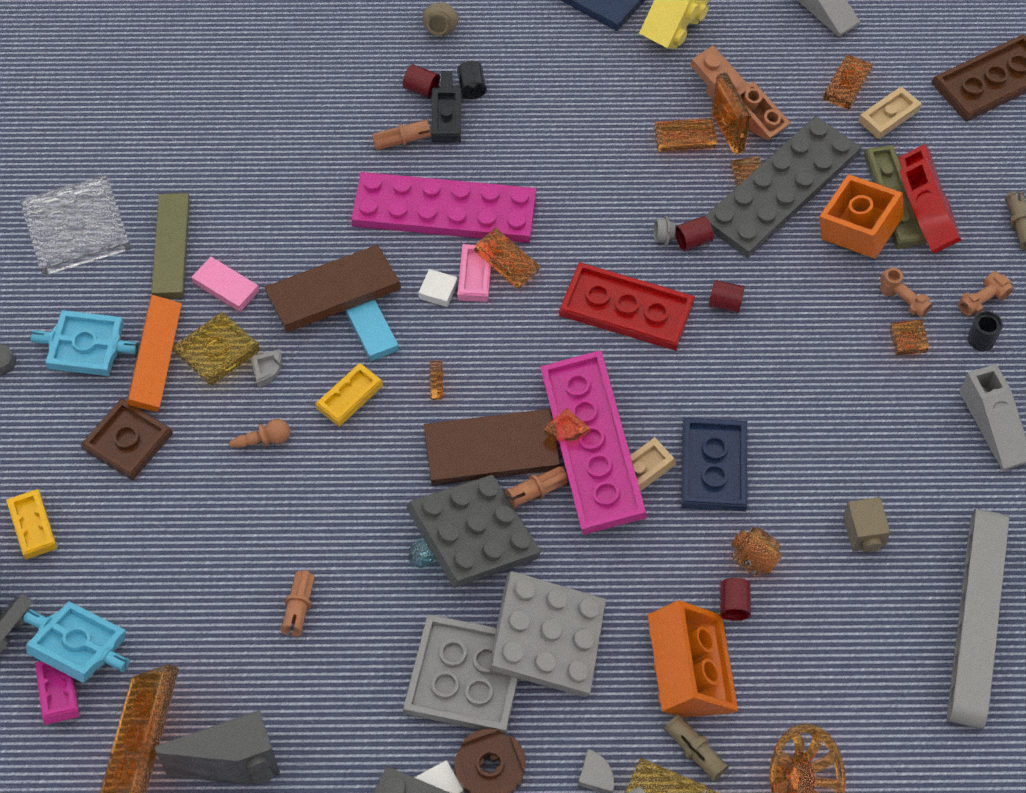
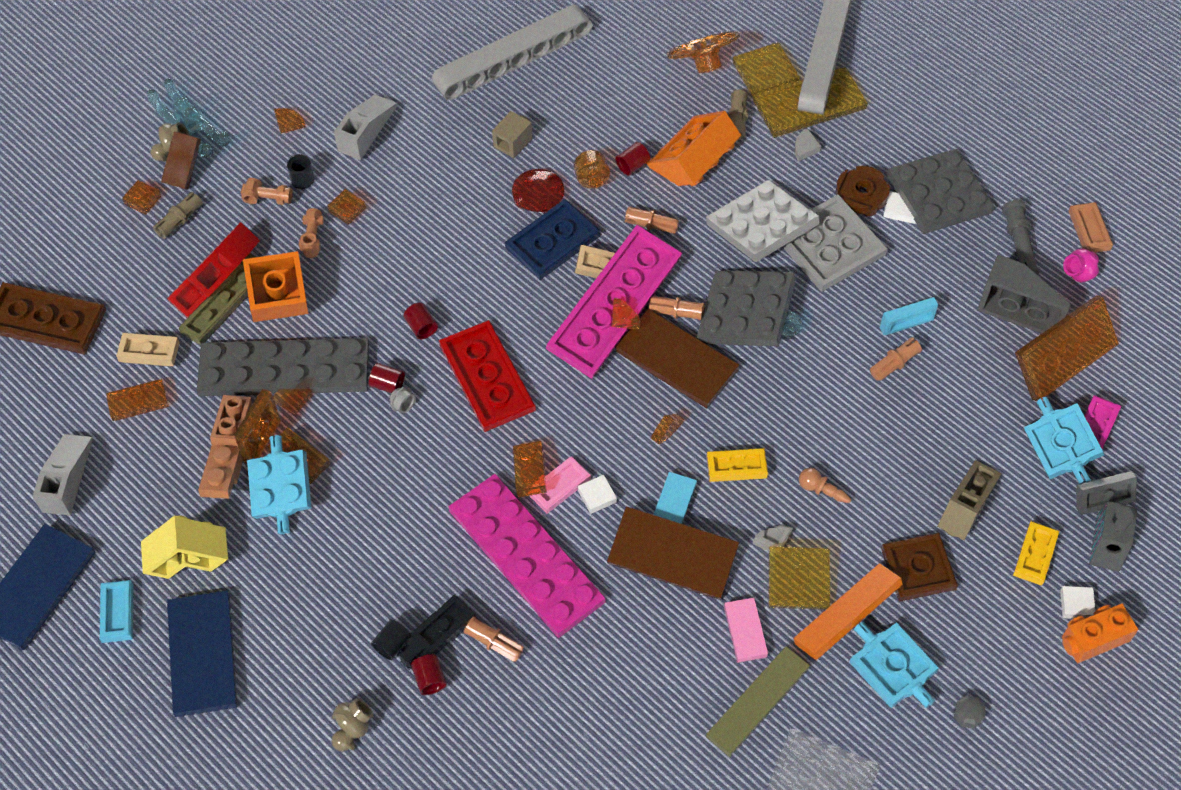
camera: 135 degrees left, 0 degrees up
(124, 524) = (968, 500): none -> dark tan slope
(321, 654) = (908, 316): none -> medium azure tile
(650, 553) = (651, 220): none -> nougat axle
(670, 102) = (279, 484): none -> medium azure plate
(780, 496) = (537, 190): none -> clear red dish

